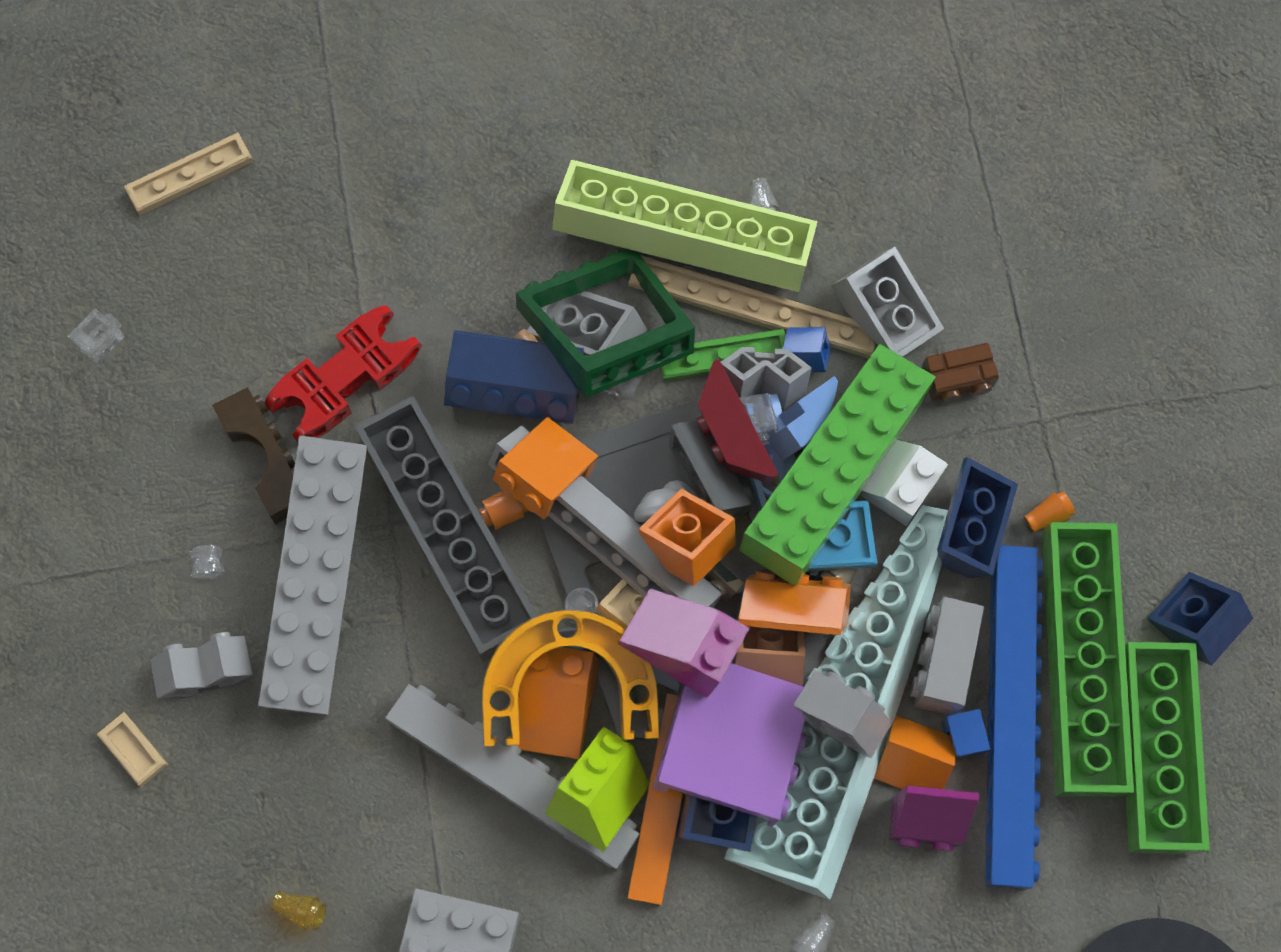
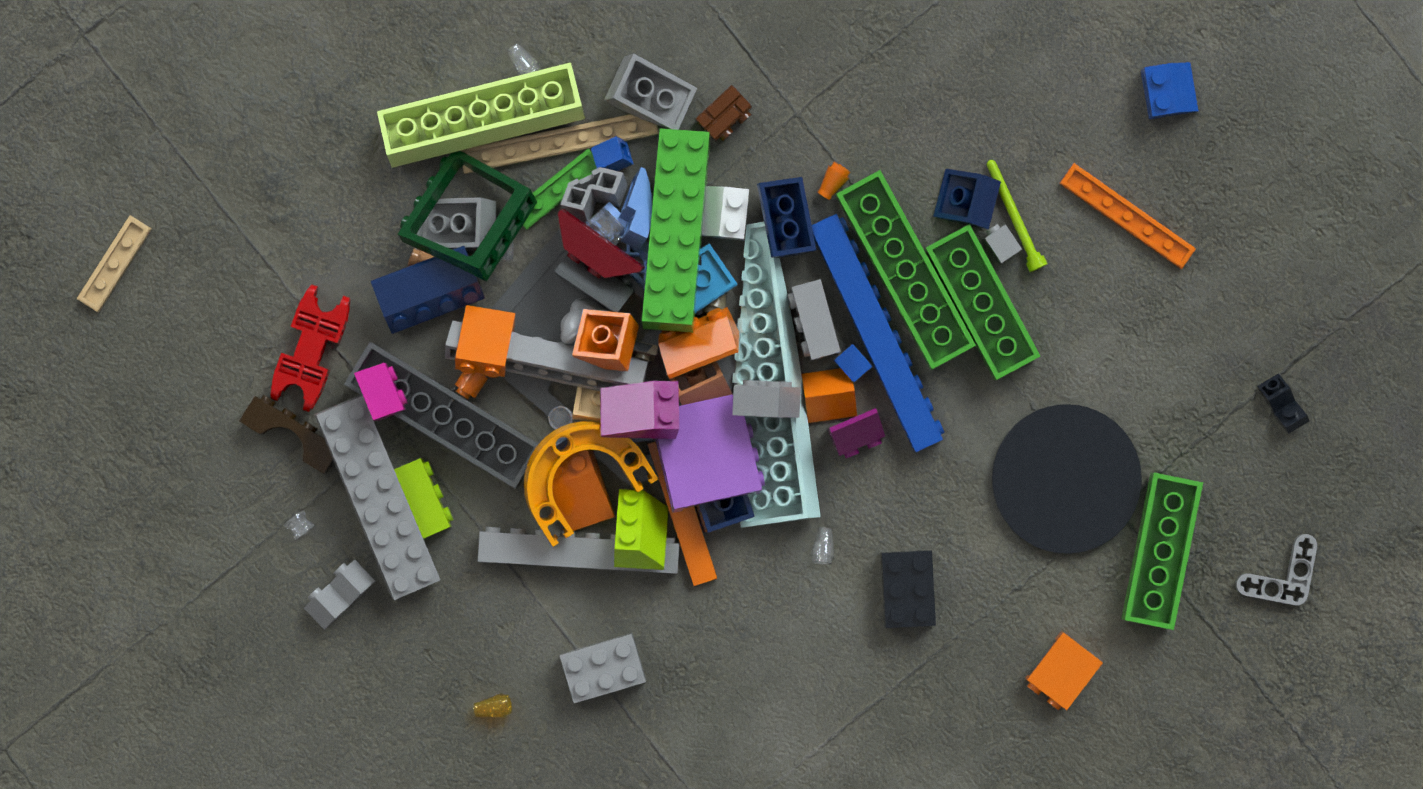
camera: 25 degrees left, 15 degrees up
(88, 331) = (121, 420): clear brick -> none
(132, 749) = (326, 669): tan tile -> none
(367, 610) = (424, 497): none -> lime brick
(389, 450) = (380, 391): none -> dark pink slope
(1219, 692) = (1001, 243): none -> light grey brick
(1249, 733) = (1034, 259): none -> lime piece

